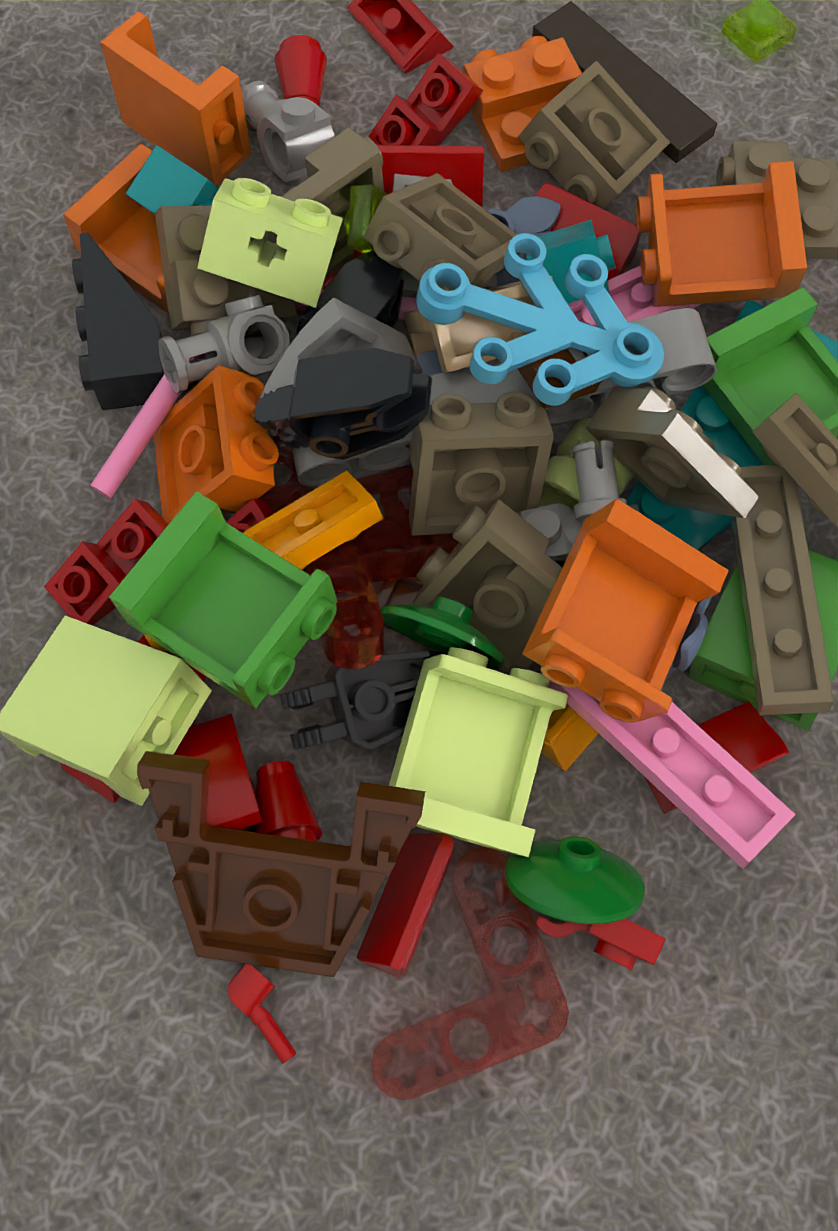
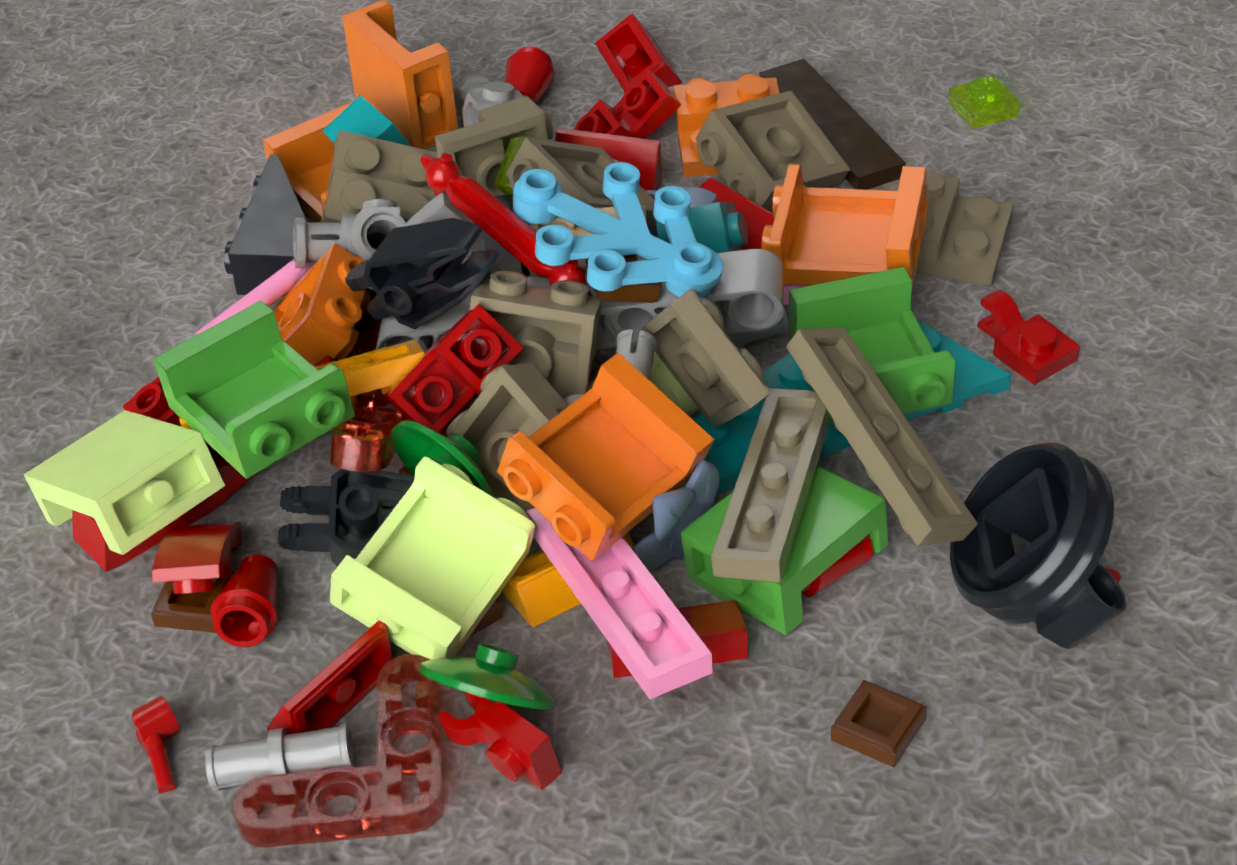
camera: 20 degrees right, 25 degrees down
(239, 247) = (388, 149): yellowish green brick -> none
(269, 894) = (206, 640): reddish brown wing -> none
(392, 1002) = (279, 754): none -> light grey pin
(402, 325) = (494, 218): none -> red wheel
(420, 502) = (453, 369): none -> red slope

